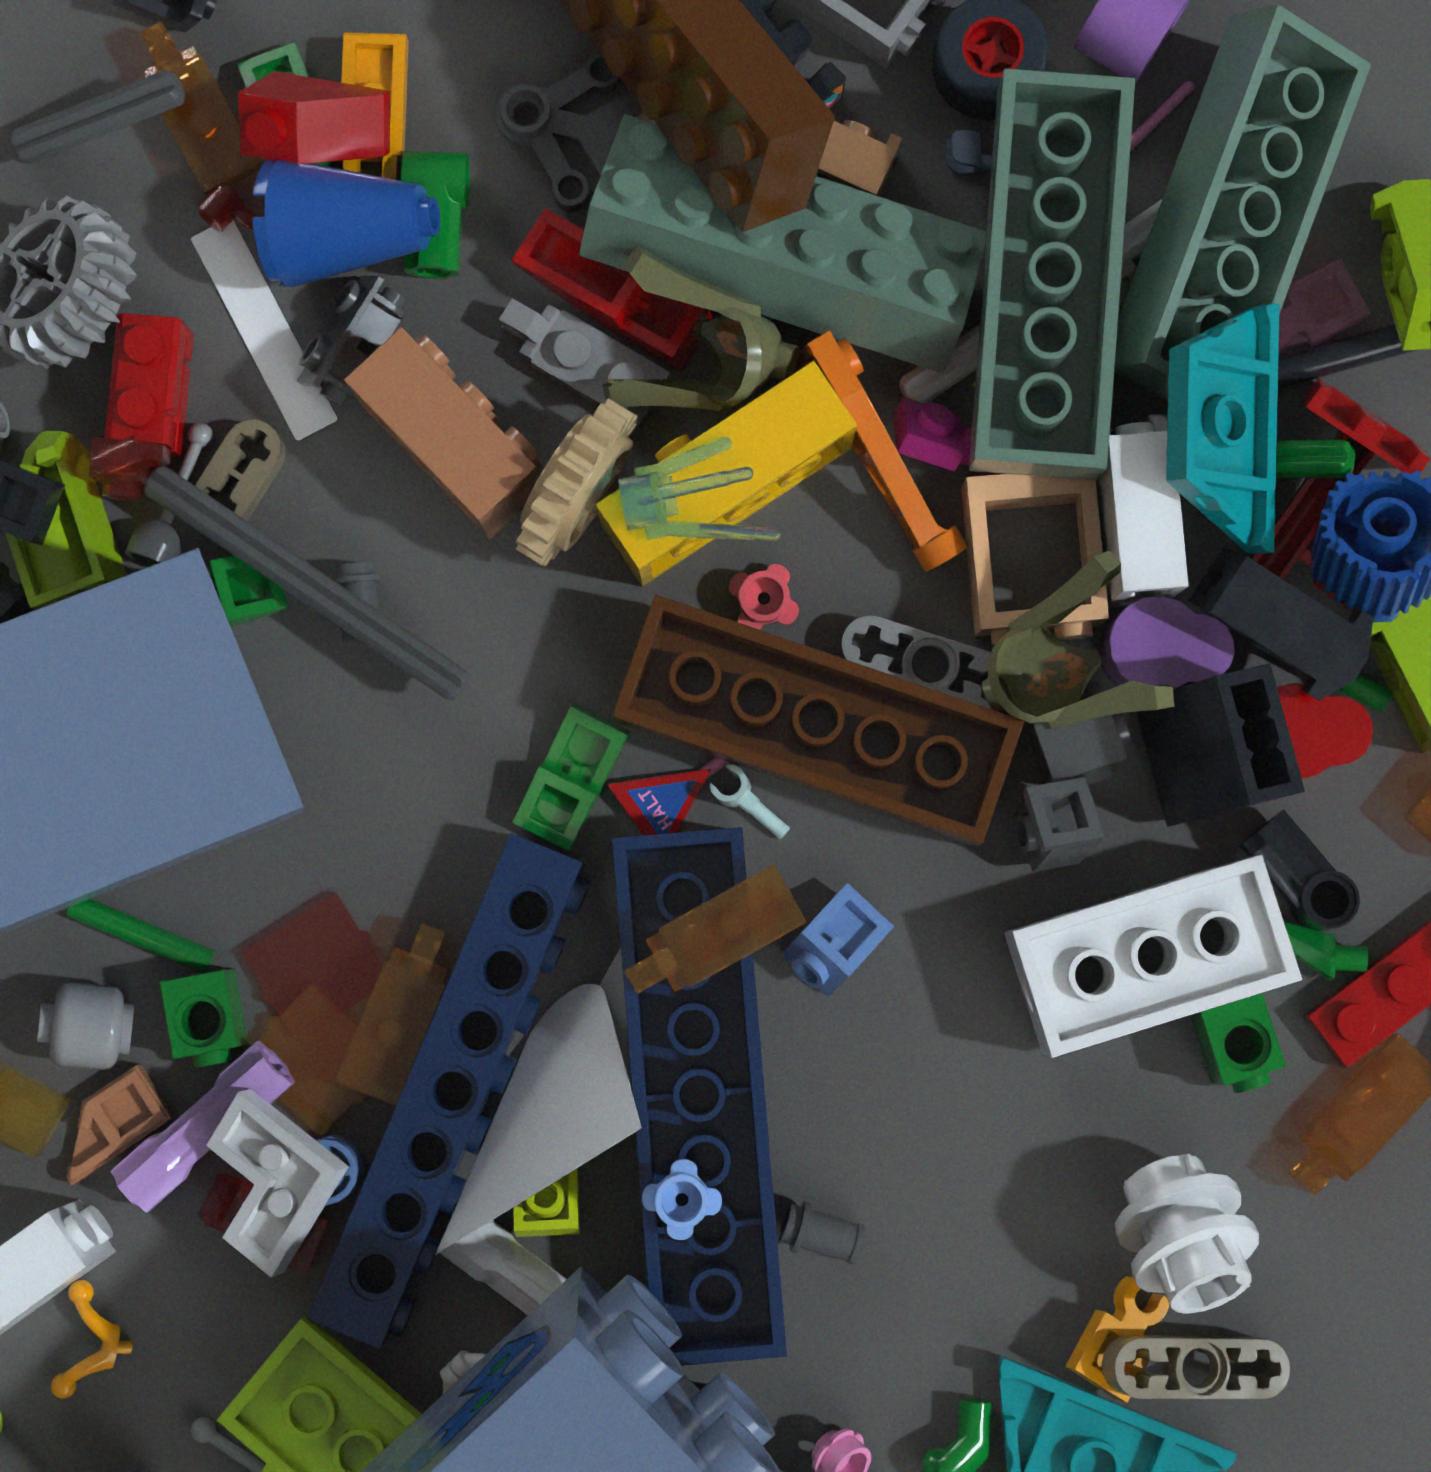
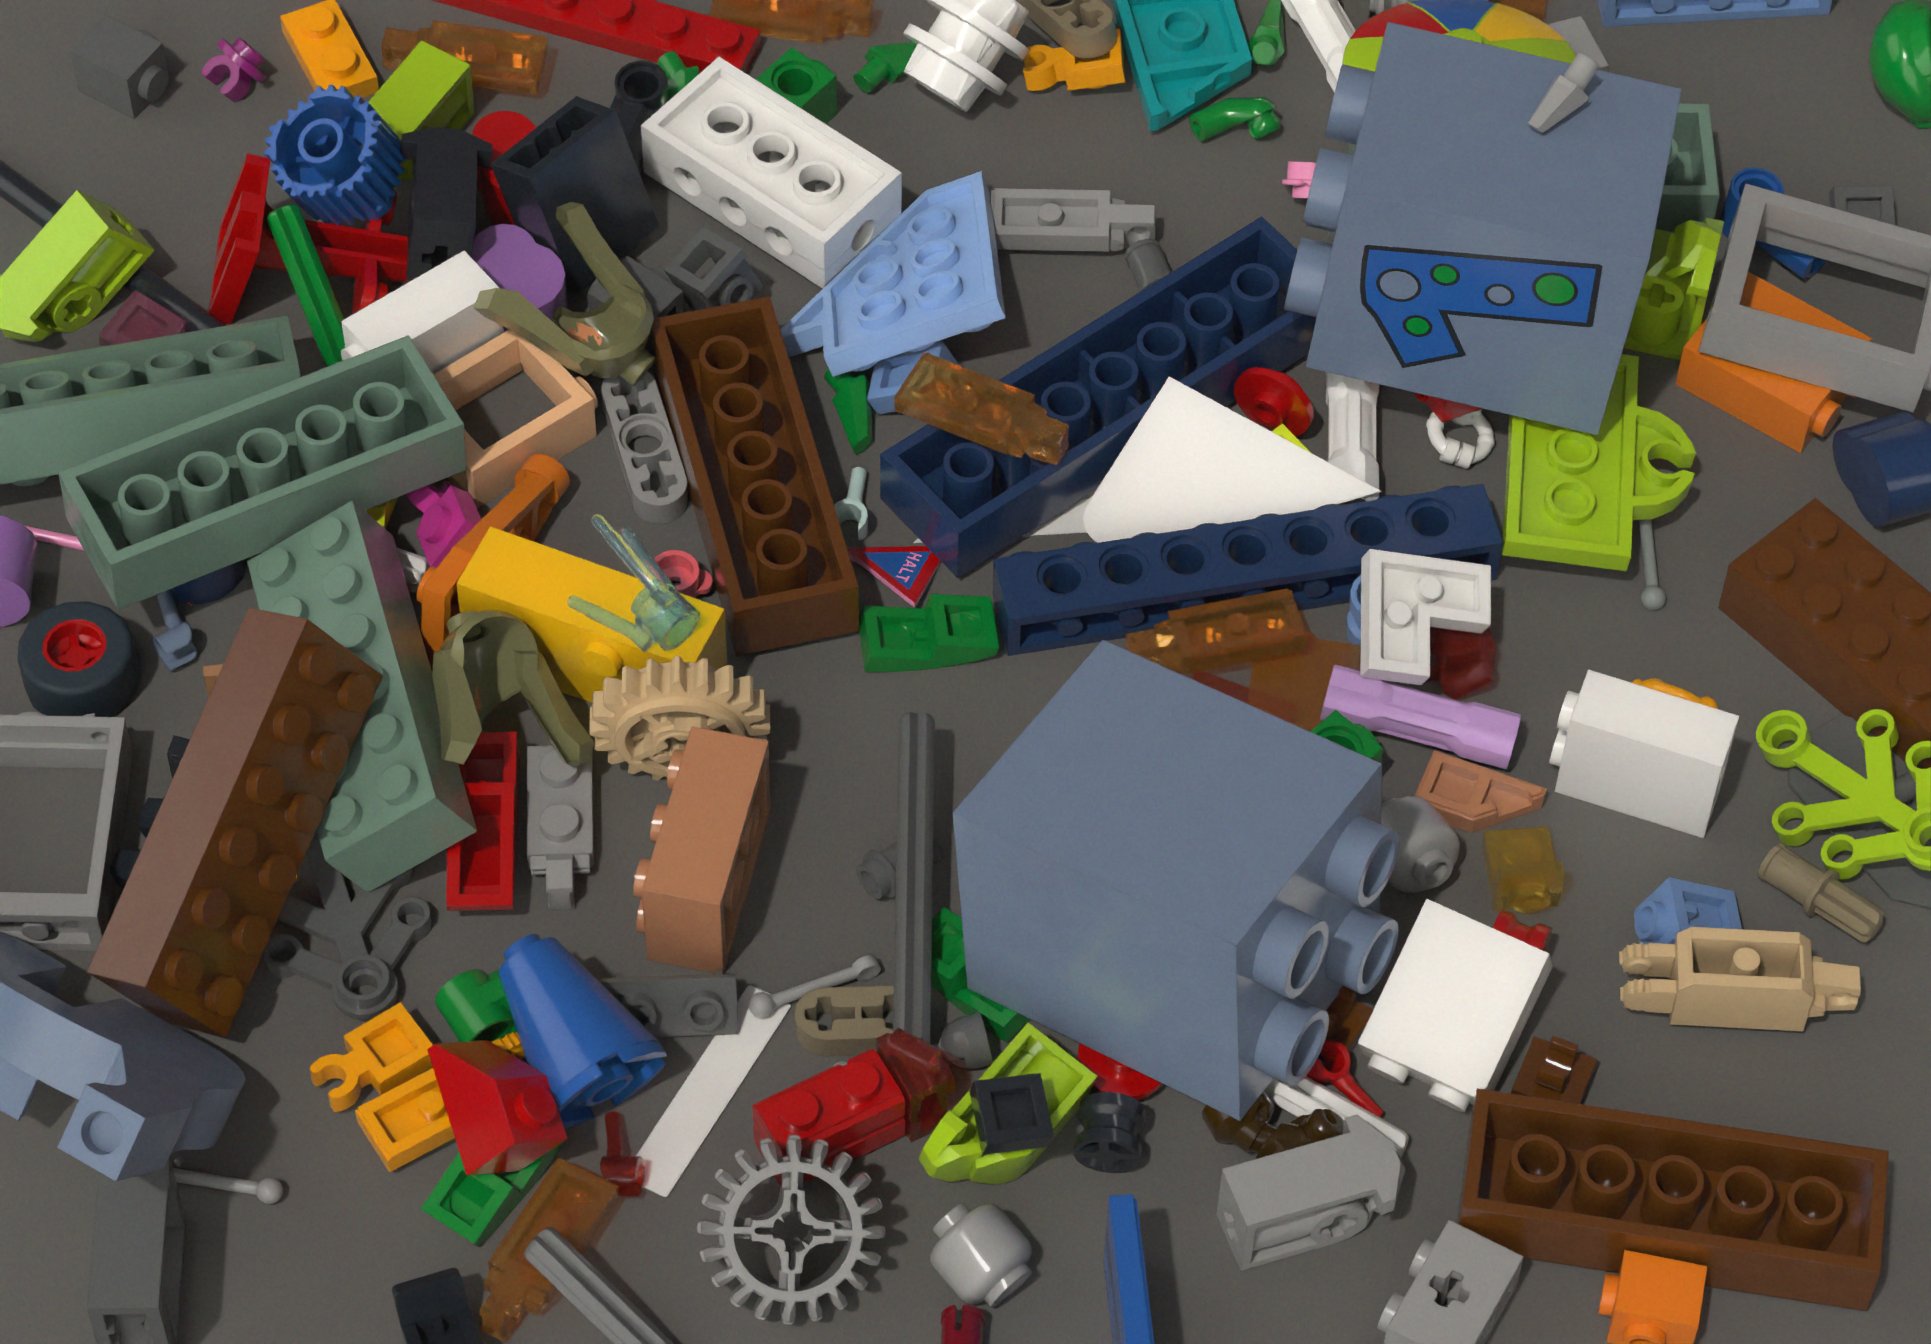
camera: 125 degrees left, 30 degrees down
(304, 413) = (863, 969): none -> light grey hinge
(449, 88) = (380, 1052): none -> light orange plate
(602, 1236) = (1273, 399): none -> red piece
(679, 1218) = (1200, 316): light blue plate -> none
(856, 869) = (853, 407): none -> green bar
(937, 1196) = (1068, 220): none -> light grey hinge
(940, 1002) = (911, 285): none -> light blue wing
(1227, 425) = (302, 297): teal wing -> none
(1237, 1160) = (883, 63): none -> green bar

